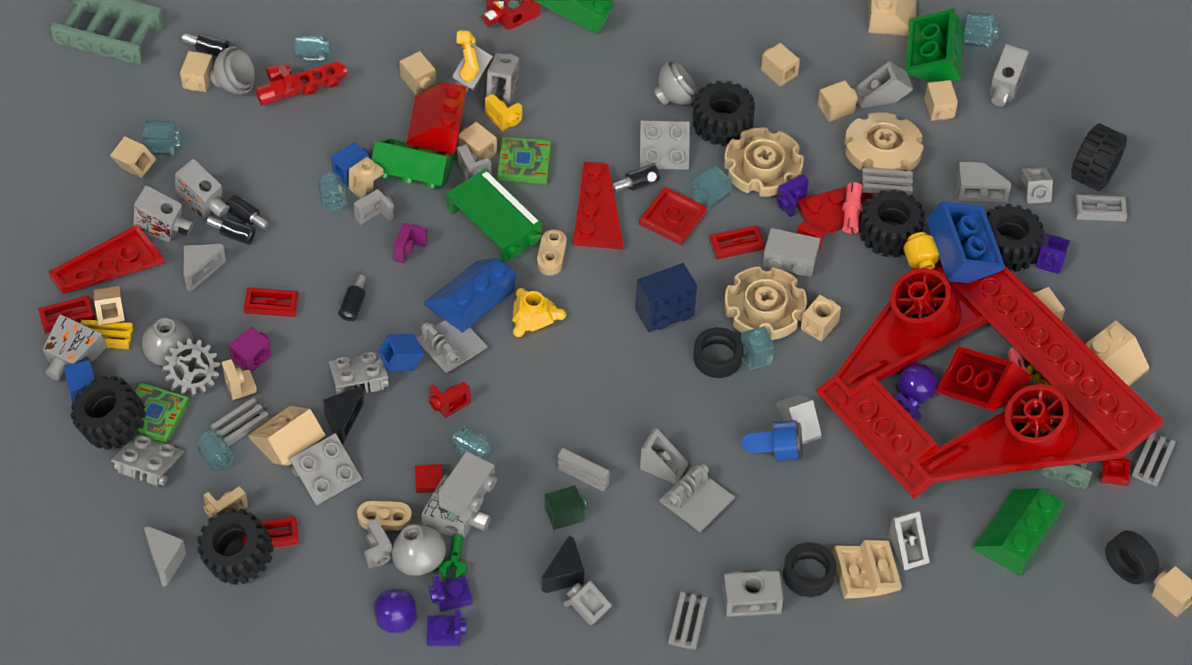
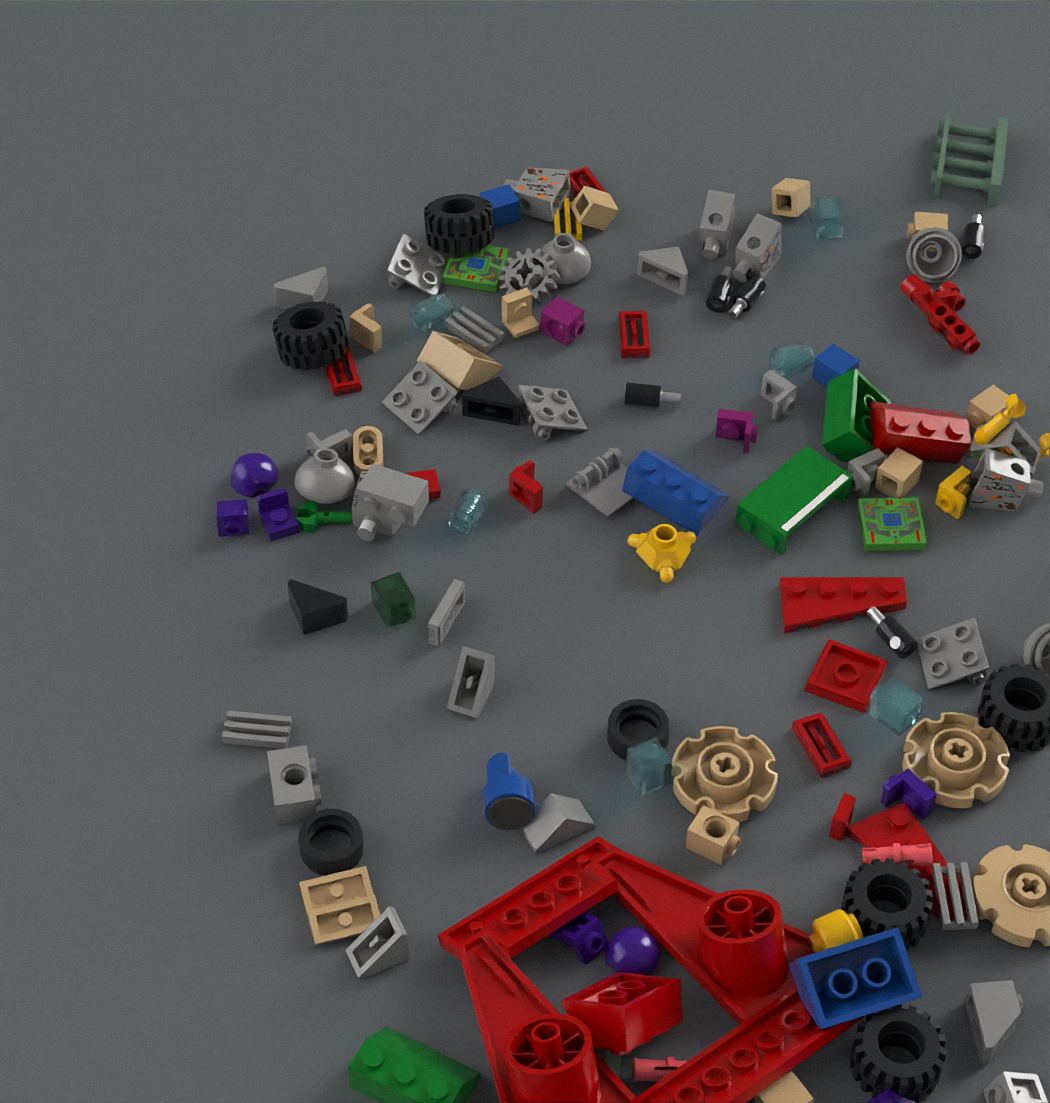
camera: 85 degrees right, 5 degrees down
(114, 258) = (657, 206): red wing -> none
(312, 47) = (997, 317): clear light blue brick -> none
(363, 176) = (813, 377): tan bracket -> none
(401, 352) = (577, 436): blue brick -> none
(553, 247) = (759, 562): tan plate -> none
(587, 601) = (270, 630): light grey bracket -> none
(666, 297) = (699, 662): dark blue brick -> none
(697, 498) = (423, 726): light grey hinge -> none
(791, 252) = (811, 798): light grey brick -> none

